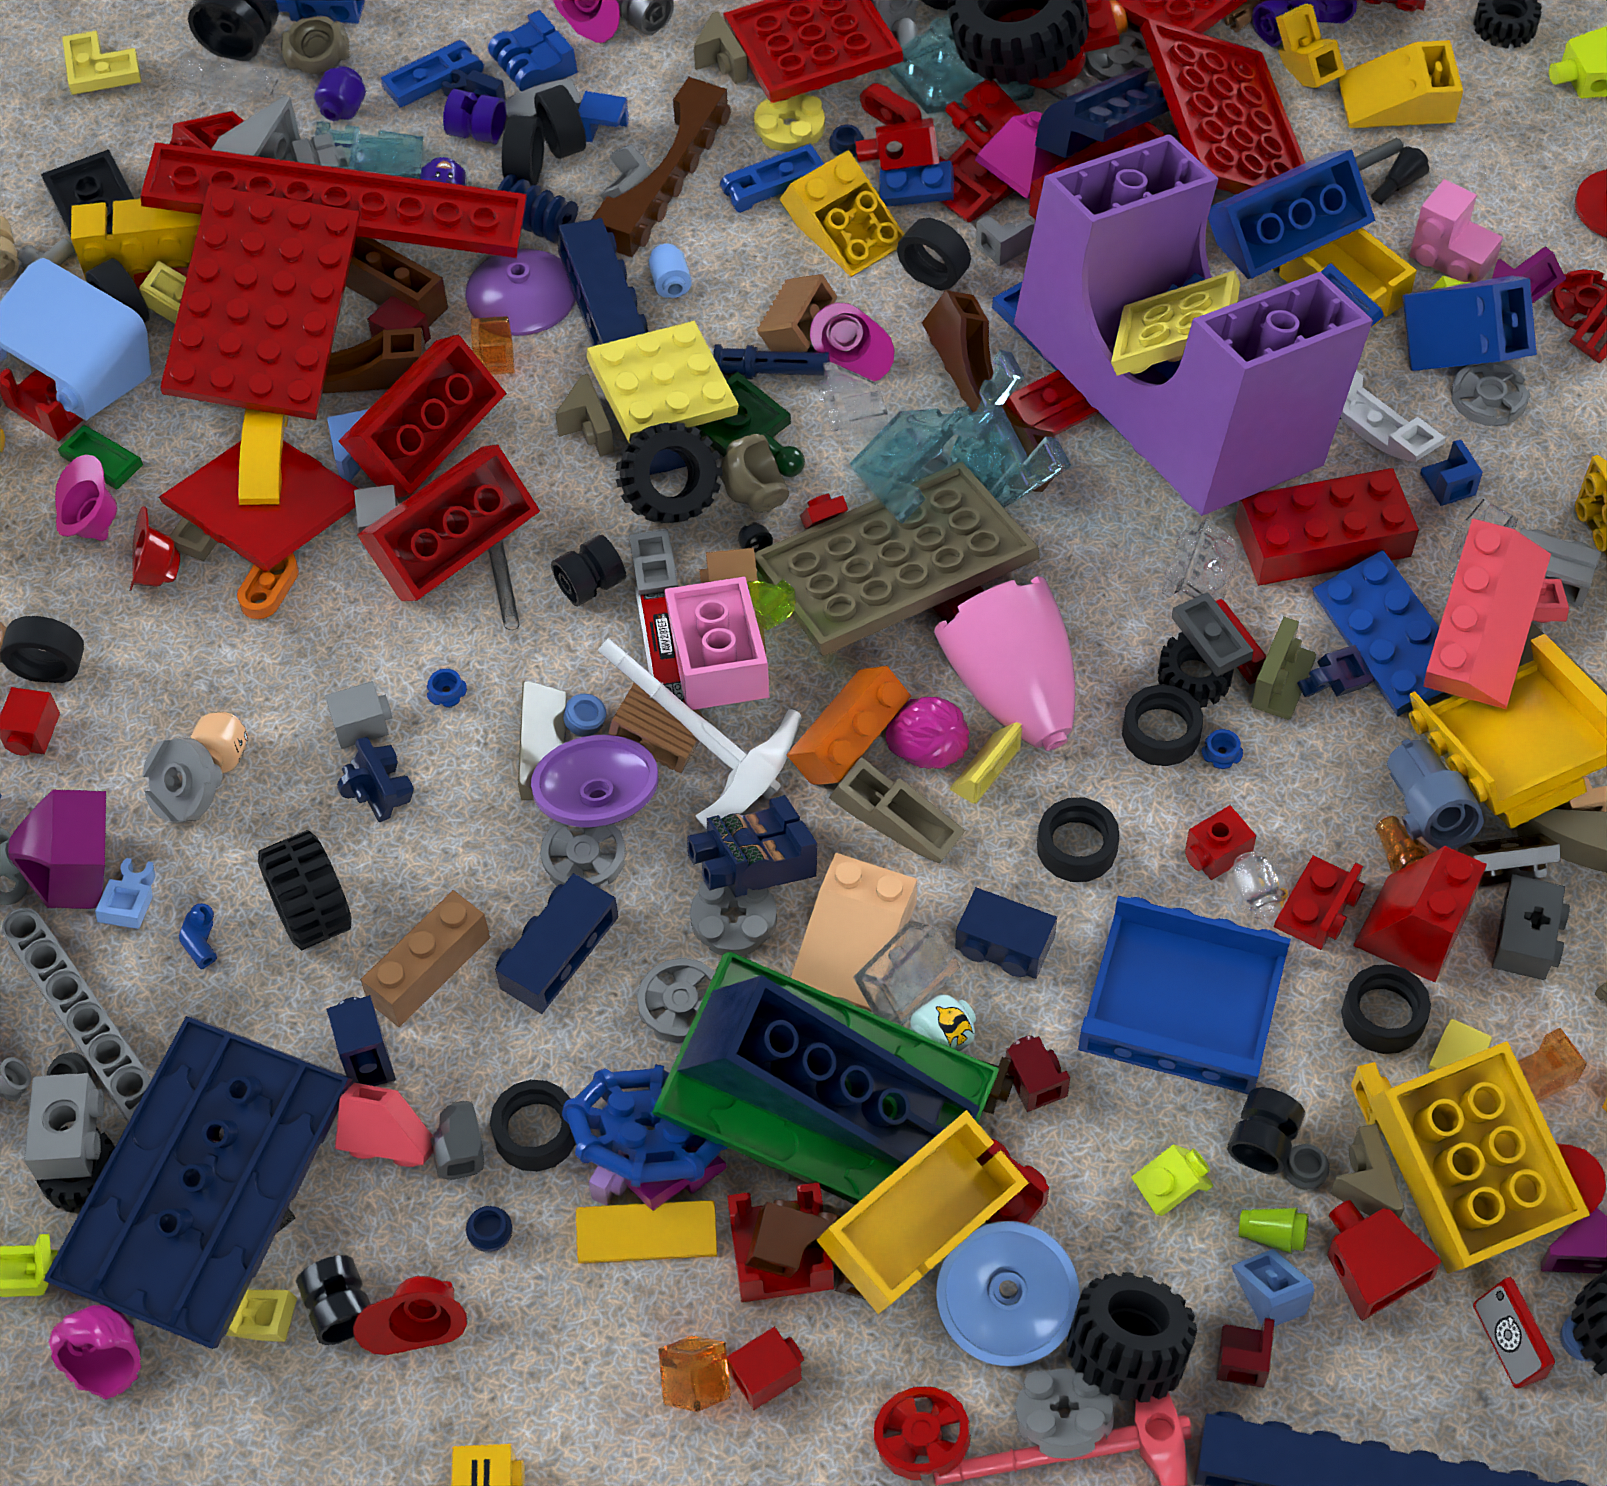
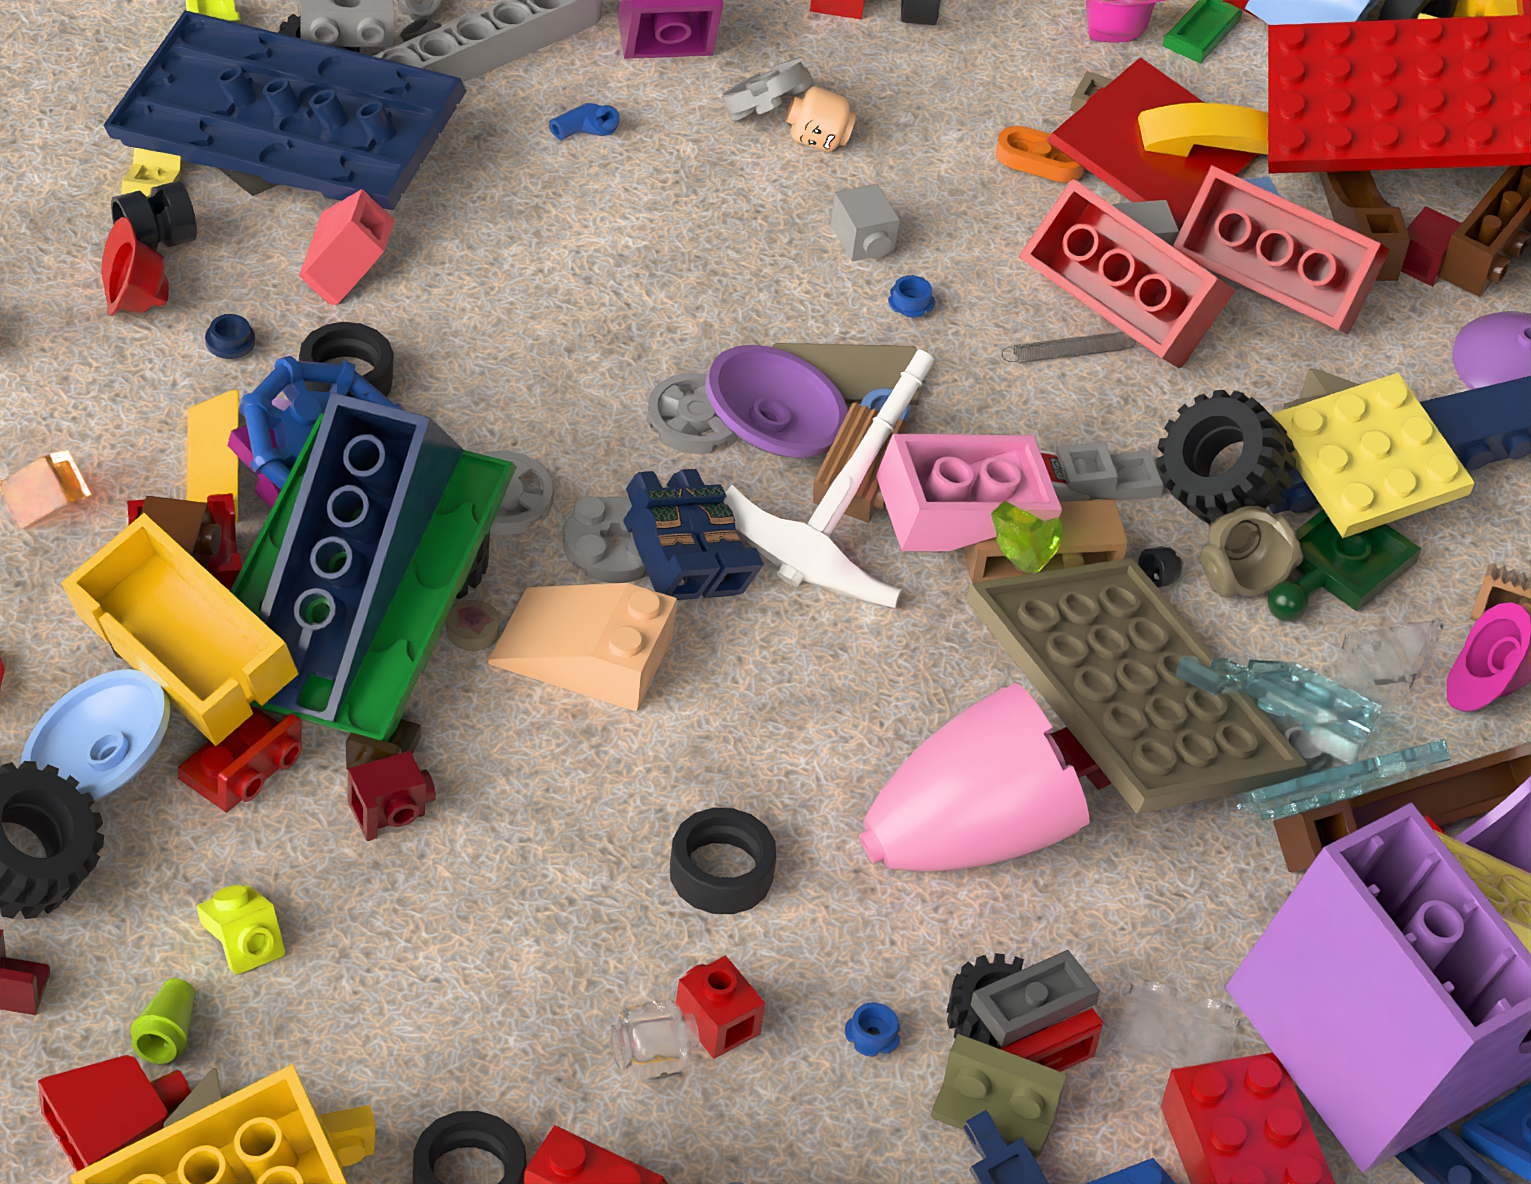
camera: 80 degrees right, 10 degrees down
(96, 1350) = (119, 59): dark pink hair -> none
(127, 900) = (627, 67): light blue plate -> none
(153, 555) = (1061, 55): red piece -> none
(305, 889) = (620, 167): black tyre -> none
(361, 1041) = (437, 218): dark blue brick -> none
(368, 779) = (780, 230): dark blue hips -> none
(426, 958) = (549, 277): medium nougat brick -> none
(458, 1142) = (324, 302): dark grey rock -> none
(493, 344) = (1415, 323): clear orange panel -> none
(556, 942) = (570, 382): dark blue brick -> none
(592, 568) = (1083, 406): black wheel -> none
(754, 362) = (1444, 566): dark blue pin -> none
(765, 1367) = (40, 542): red brick -> none
(822, 509) = (1208, 624): red plate -> none
(849, 725) = (872, 632): orange brick -> none
(897, 811) = (758, 682): dark tan slope -> none
(907, 972) = (520, 671): clear brick -> none
(928, 733) = (873, 717): dark pink hair -> none
(945, 1021) = (450, 706): light aqua head -> none
(988, 763) = (829, 778): light yellow slope -> none
(1005, 933) = (580, 776): dark blue brick -> none
(1158, 751) = (907, 928): black tyre -> none
(1185, 994) = (491, 960): blue panel -> none
(1266, 1130) = (308, 1013): black wheel -> none
(1274, 1287) = (82, 1005): medium blue slope -> none
(1306, 1167) = (248, 1061): dark grey plate -> none
(1318, 902) = (636, 1118): red bracket -> none

